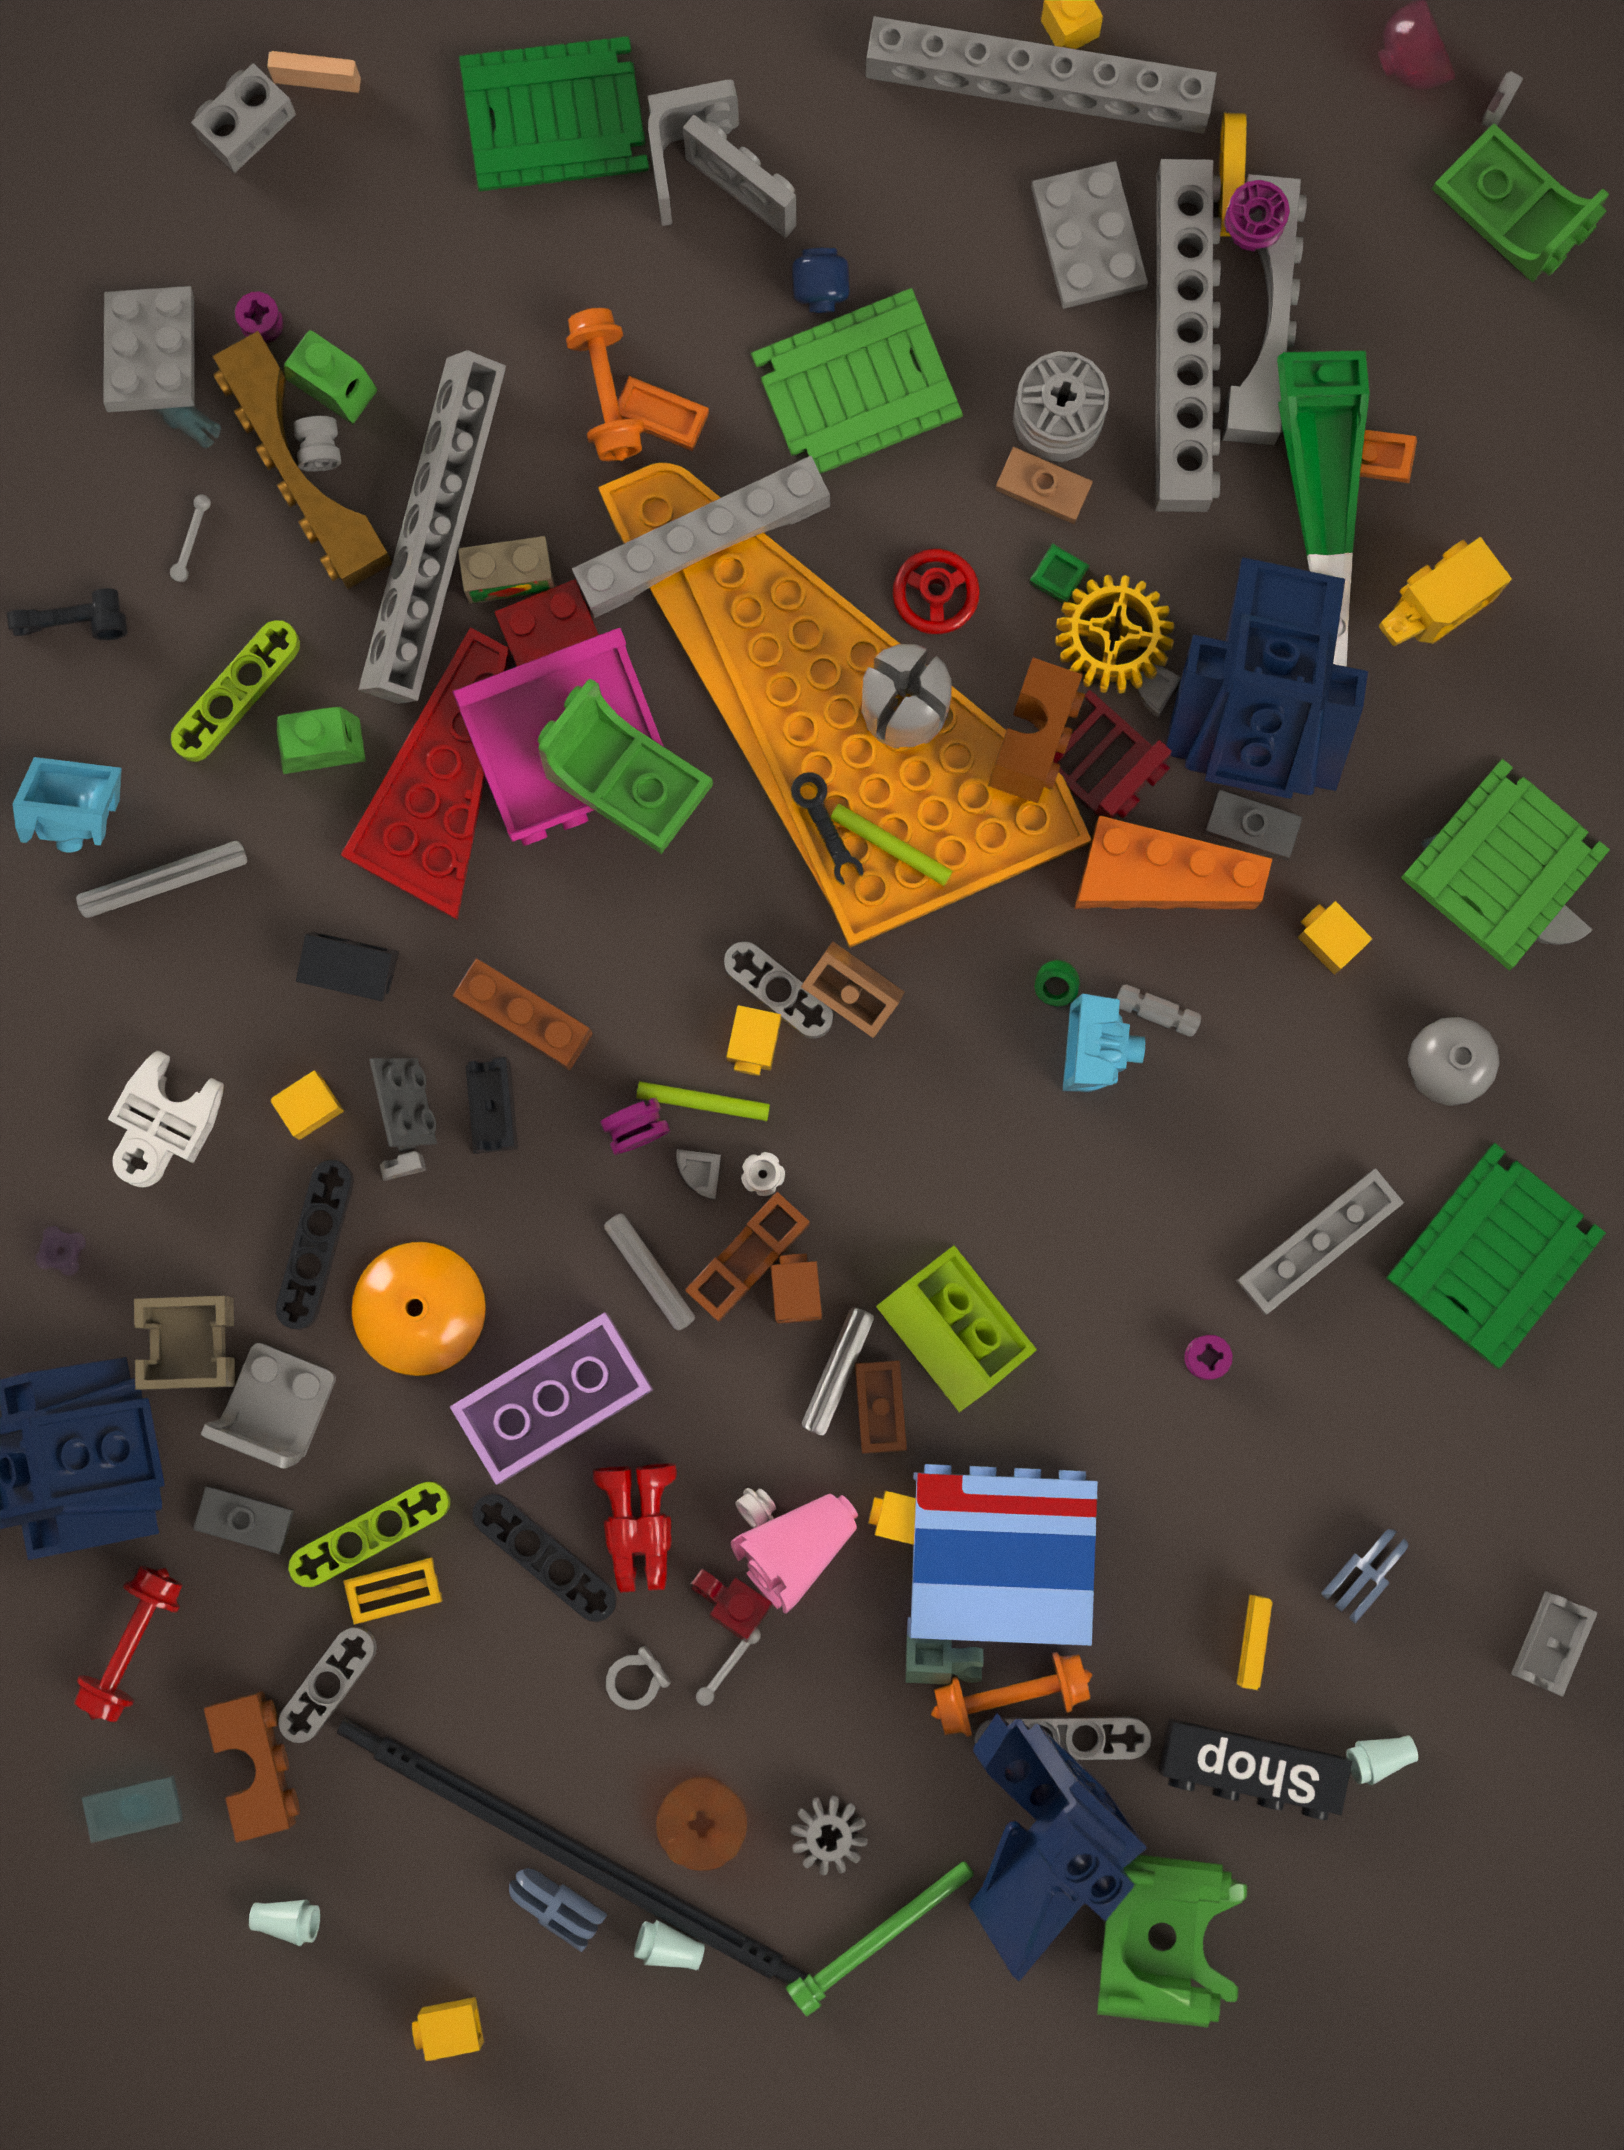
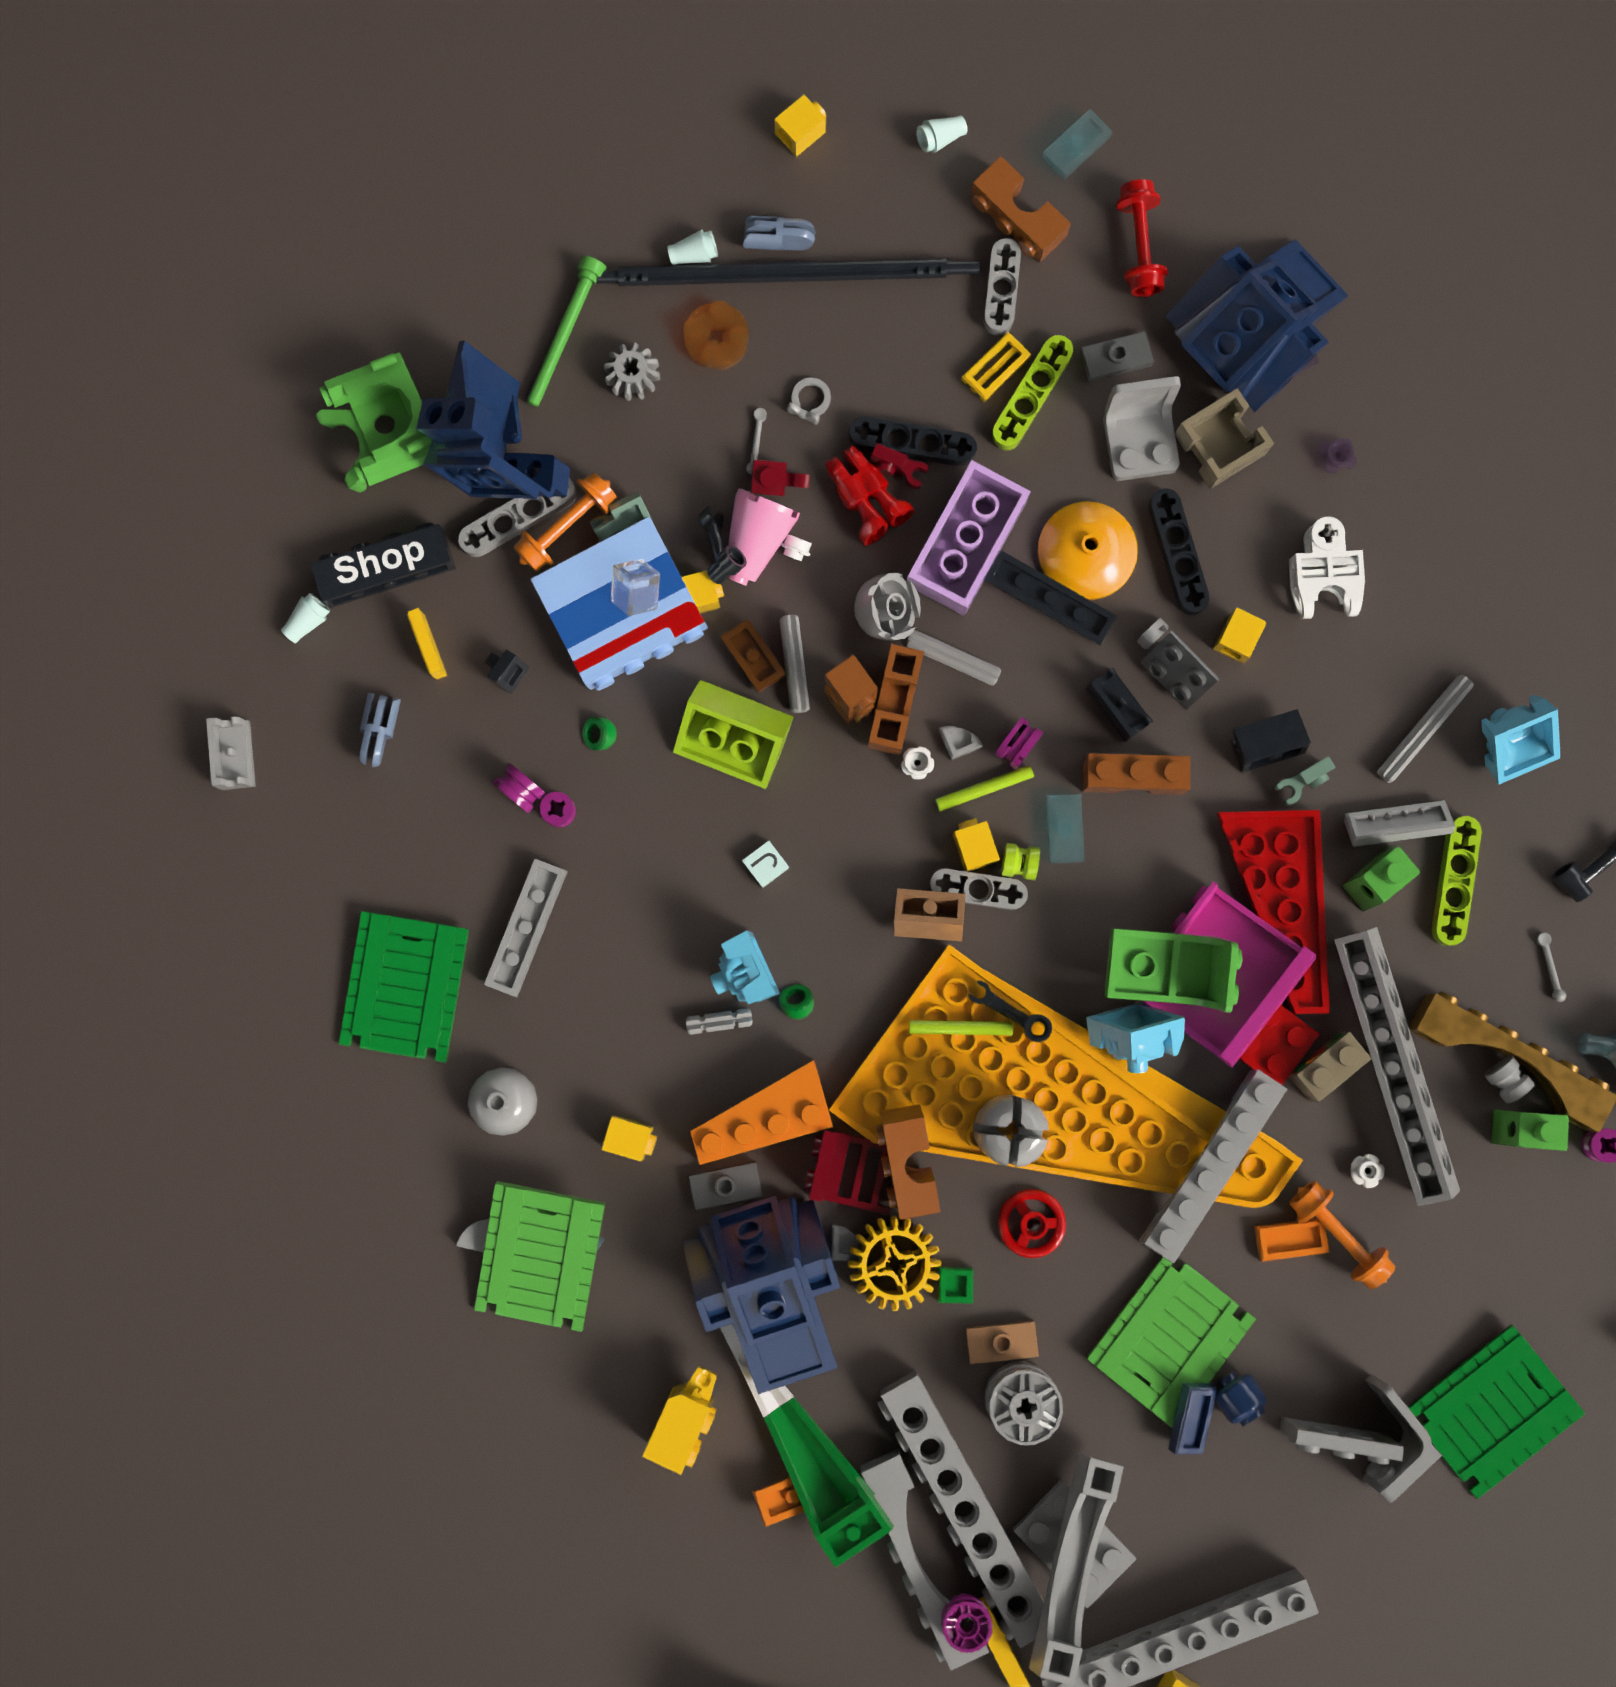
camera: 150 degrees right, 0 degrees up
(260, 789) = (1399, 823): none -> light grey plate
(323, 898) = (1314, 776): none -> sand green plate
(496, 1274) = (1050, 598): none -> black plate
(539, 447) = (1358, 1168): none -> white plate
(587, 1544) = (894, 462): none -> dark red plate
(639, 1001) = (1065, 829): none -> clear light blue plate
(694, 1369) = (887, 607): none -> light grey cylinder
(701, 724) = (1137, 1034): none -> medium azure brick
(720, 999) = (1013, 858): none -> lime wheel
(849, 1529) = (727, 560): none -> black brick
(885, 288) = (1192, 1418): none -> dark blue tile
(976, 1558) = (635, 587): none -> clear panel
(1004, 1157) = (765, 864): none -> light aqua tile
(1098, 1421) = (607, 730): none -> green piece
(1162, 151) = (1058, 1636): none -> light grey arch
(1178, 1555) = (506, 670): none -> black tile
(1240, 1406) = (519, 788): none -> magenta wheel

